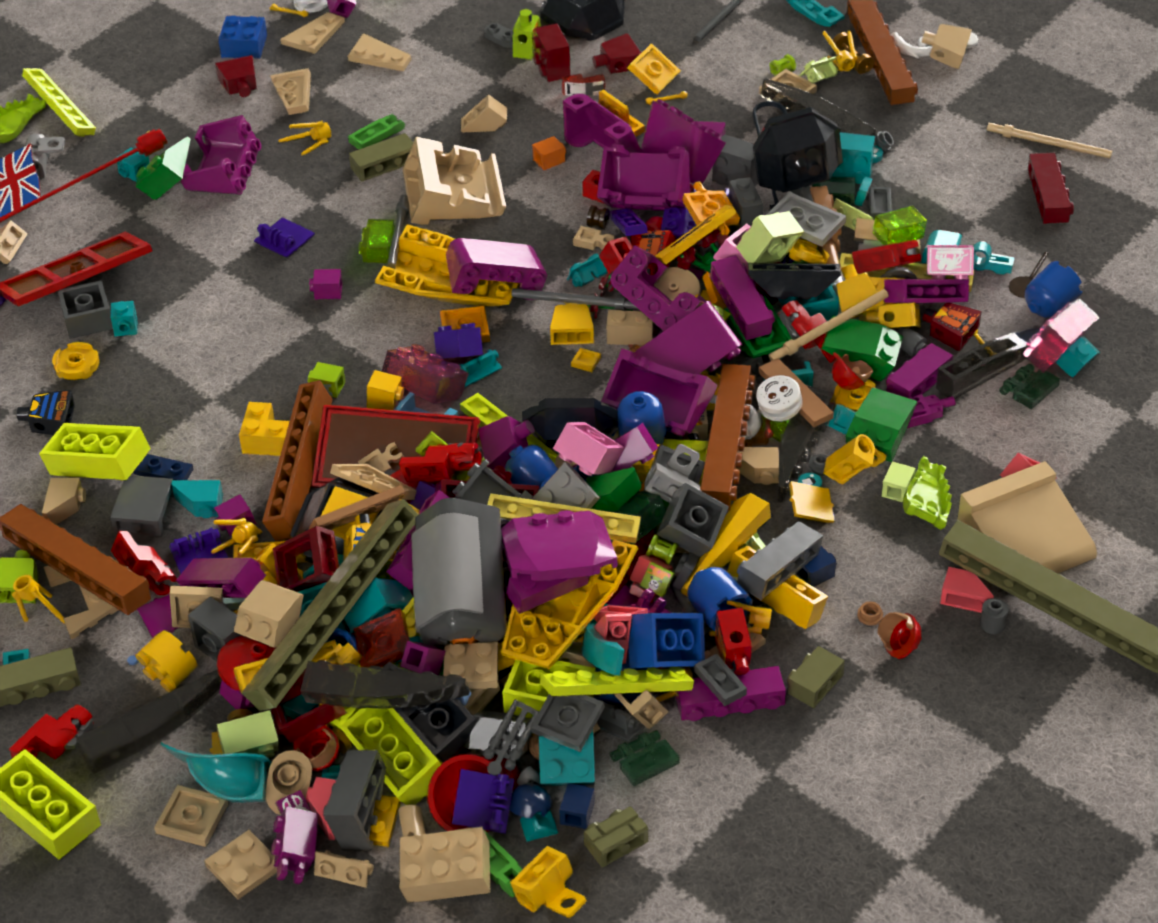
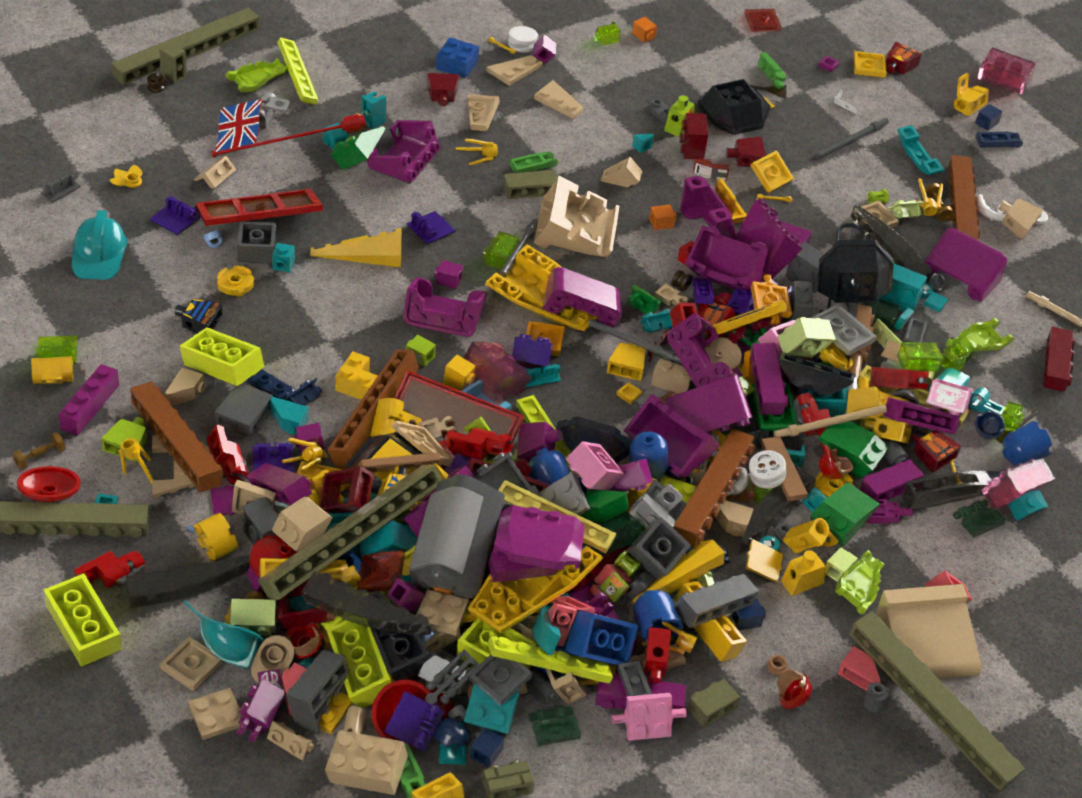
camera: 10 degrees right, 0 degrees up
(28, 317) = (211, 236): none -> light blue tile
(168, 119) = (374, 109): none -> teal hinge
(209, 461) = (307, 389): none -> dark blue hinge
(232, 279) = (378, 249): none -> yellow wedge
(318, 461) = (386, 413): none -> yellow piece
(335, 330) = (442, 313): none -> magenta windscreen
(494, 75) = (642, 142): none -> teal slope
(563, 252) = (643, 300): none -> green hips
(749, 713) = (648, 716): none -> bright pink plate
(862, 502) = (804, 573): none -> yellow torso
(891, 163) = (936, 301): none -> teal tile
(911, 108) = (968, 262): none -> magenta windscreen
(937, 216) = (955, 356): none -> clear neon green brick
(954, 189) = (982, 337): none -> lime animal
(1003, 281) = (989, 425): none -> dark blue hair
(1024, 265) = (1013, 416): none -> clear neon green brick

